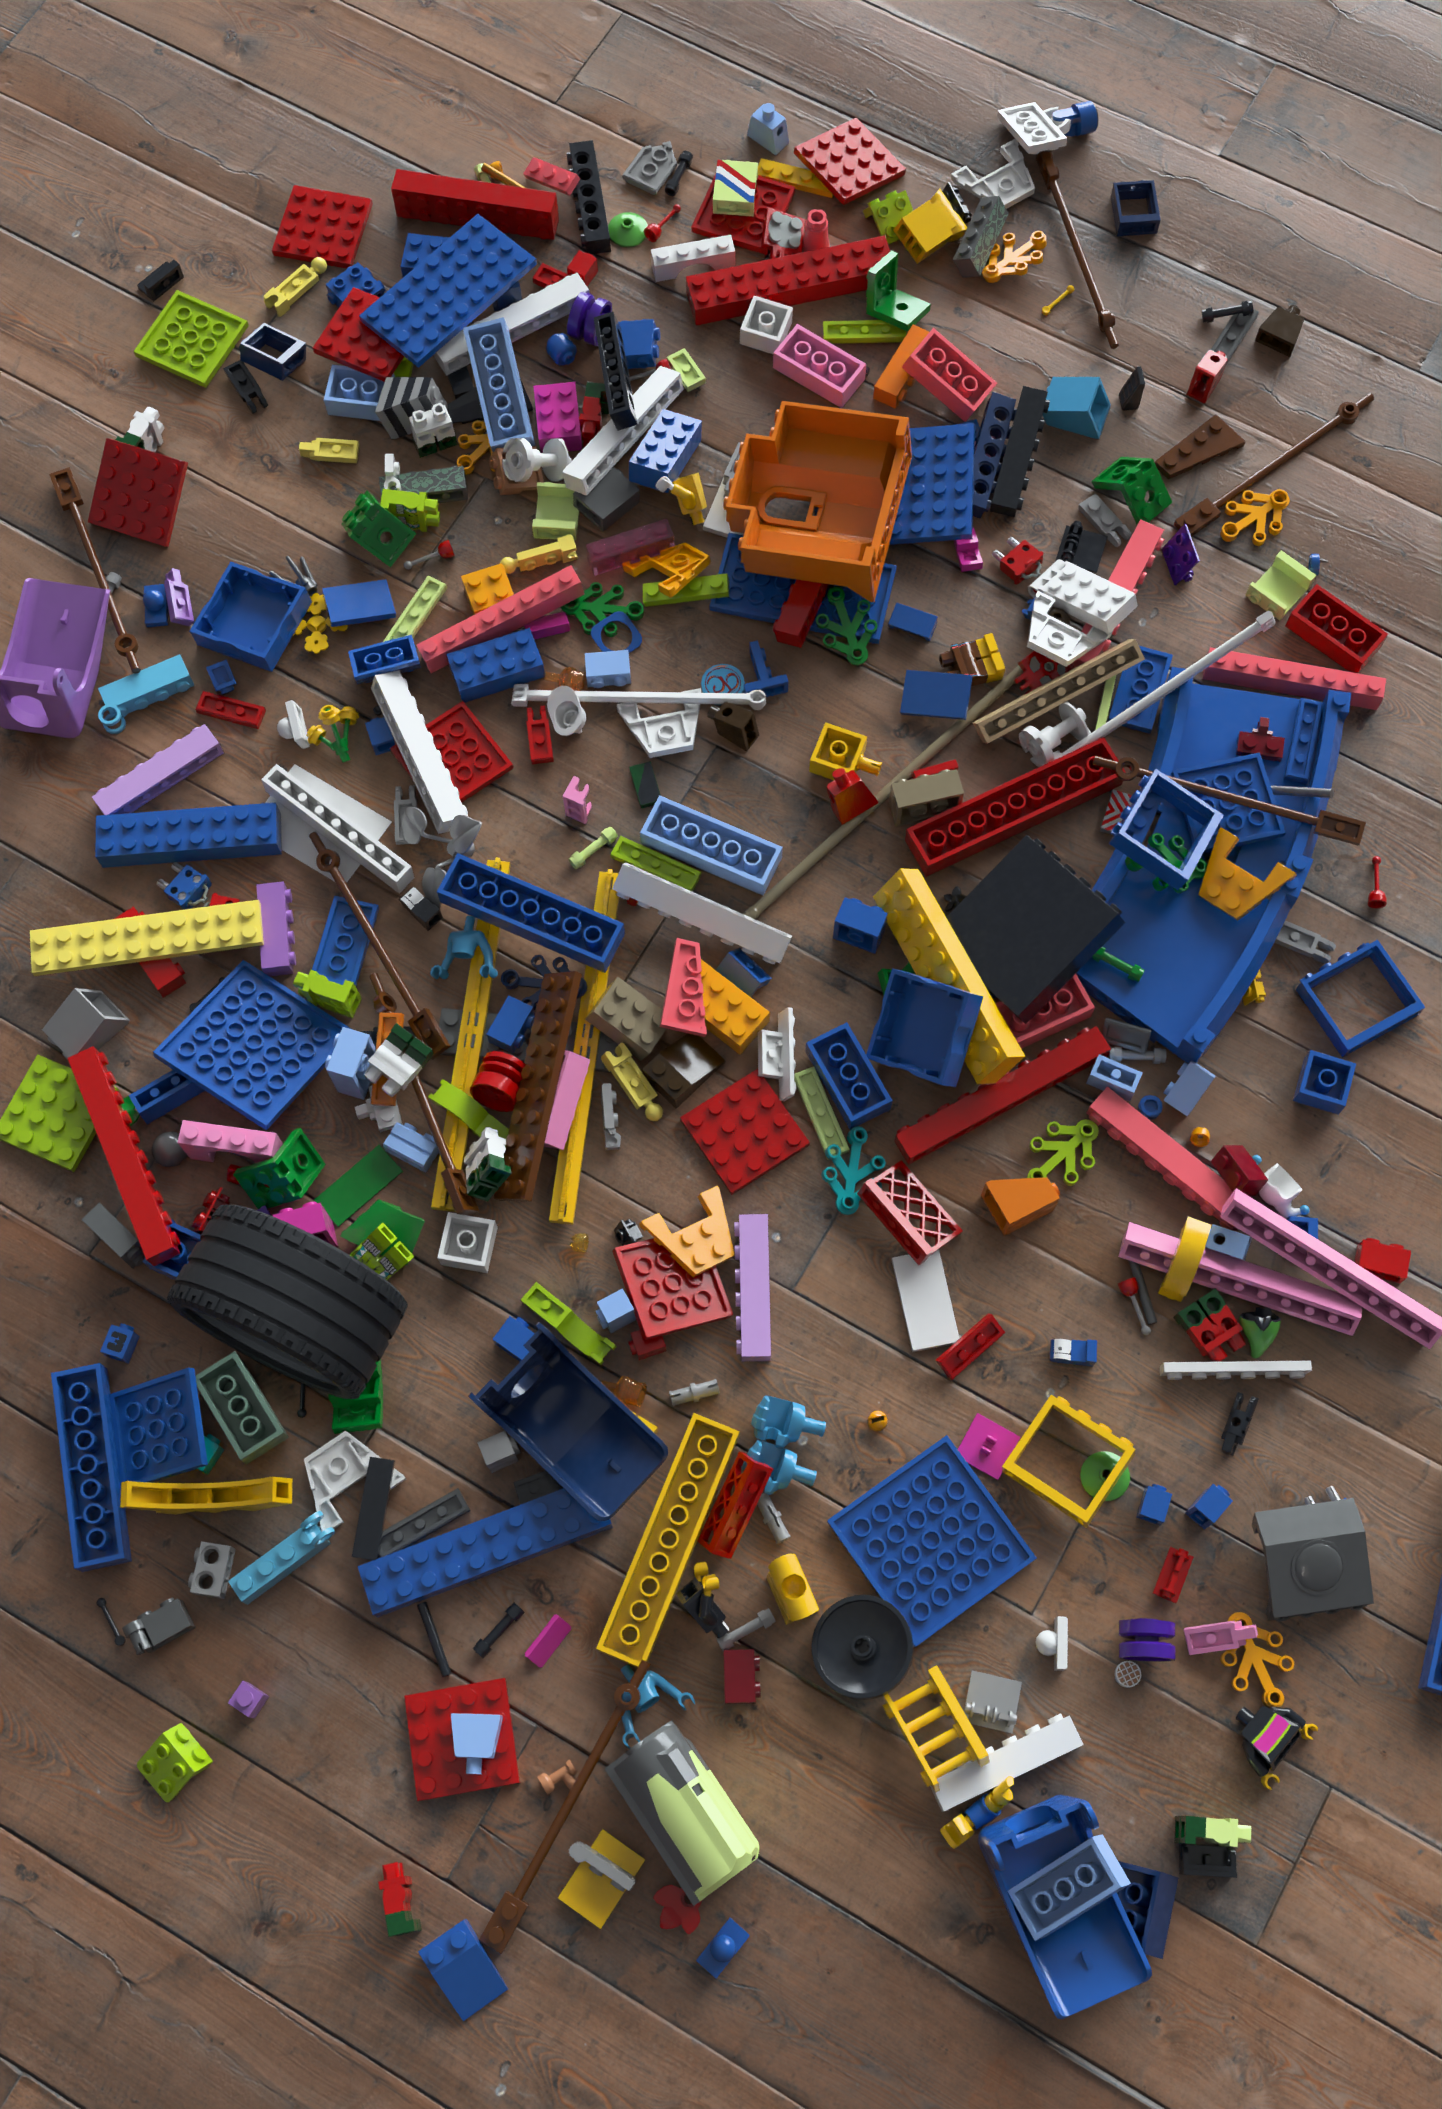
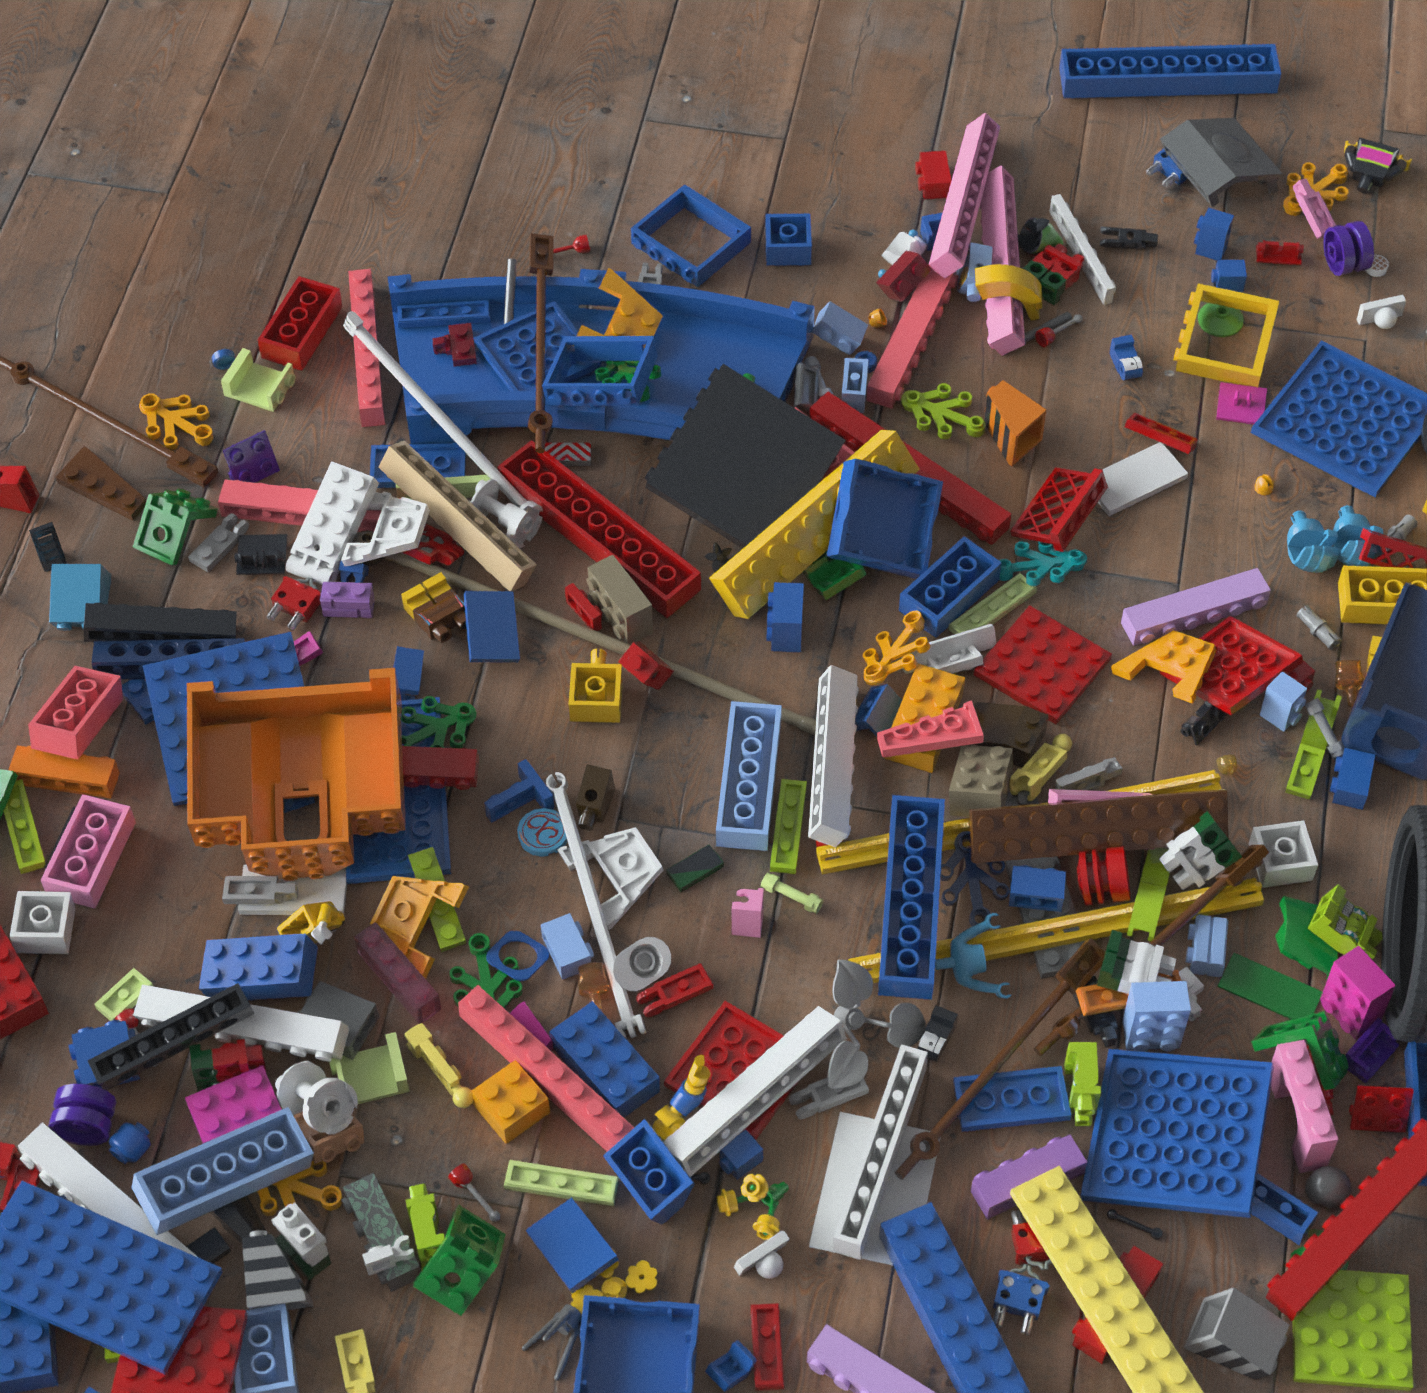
camera: 110 degrees left, 15 degrees down
(432, 701) = (684, 1101): none -> yellow piece
(595, 1333) = (1315, 708): none -> light grey bar
(777, 981) = (876, 671): none -> light orange plant
(1005, 596) = (347, 599): none -> medium lavender brick

